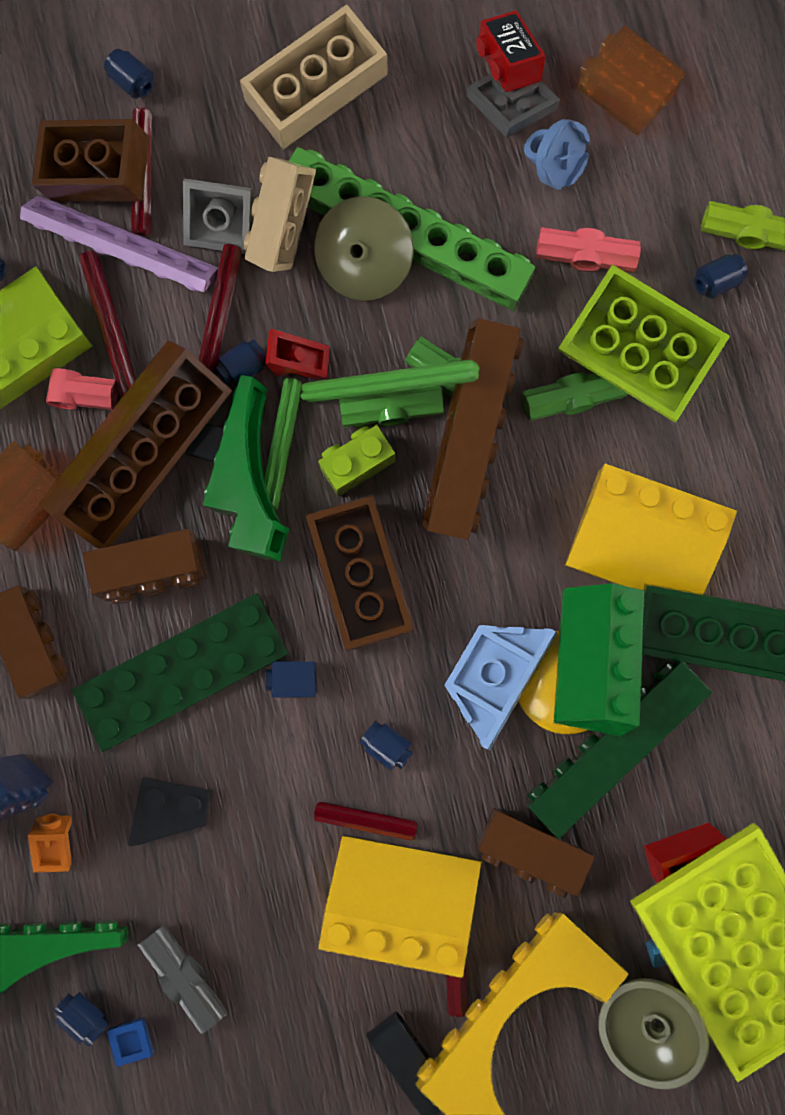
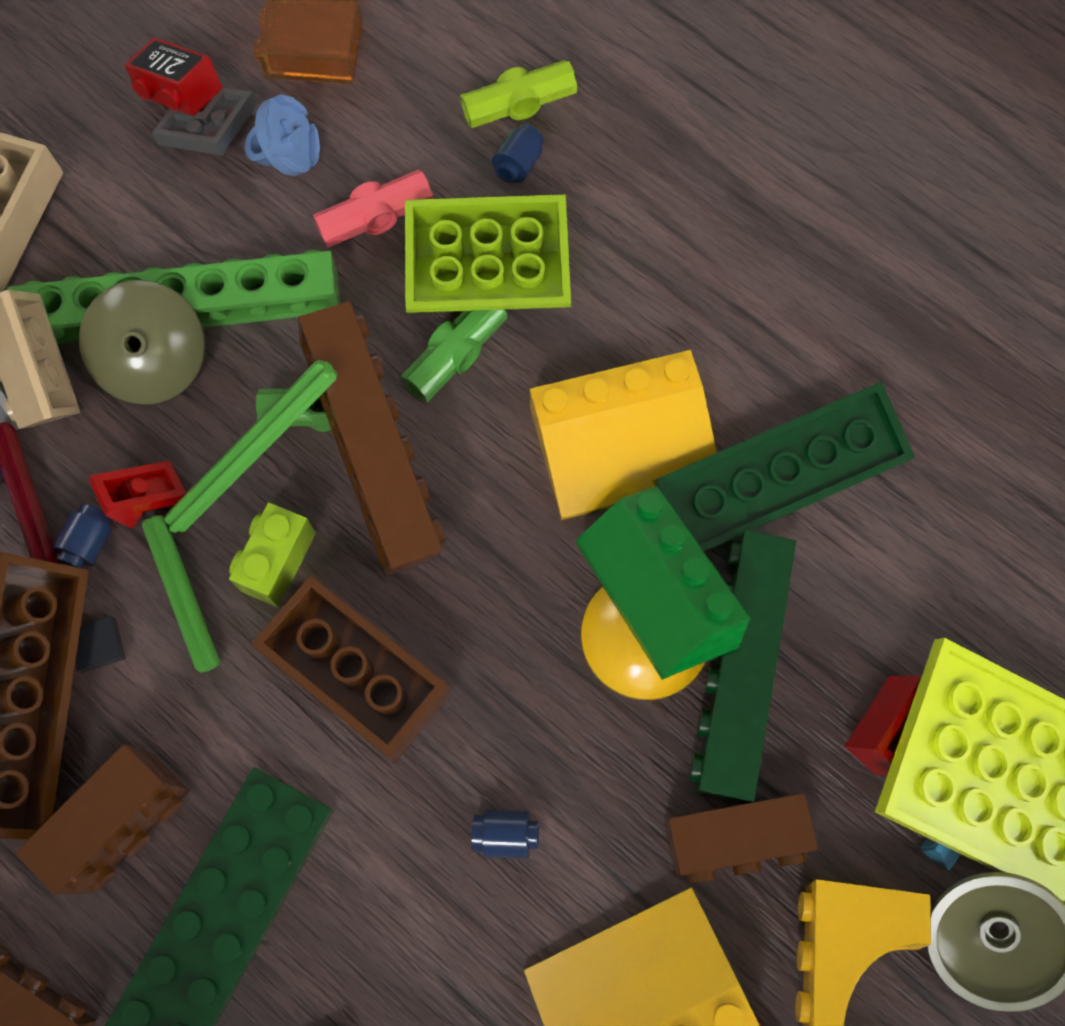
camera: 35 degrees left, 10 degrees down
(238, 478) = (155, 660): green arch -> none
(292, 679) = (353, 833): dark blue brick -> none
(365, 821) = (537, 935): dark red axle -> none
(391, 407) = (273, 477): bright green piece -> none
(495, 674) = (567, 676): light blue wing -> none

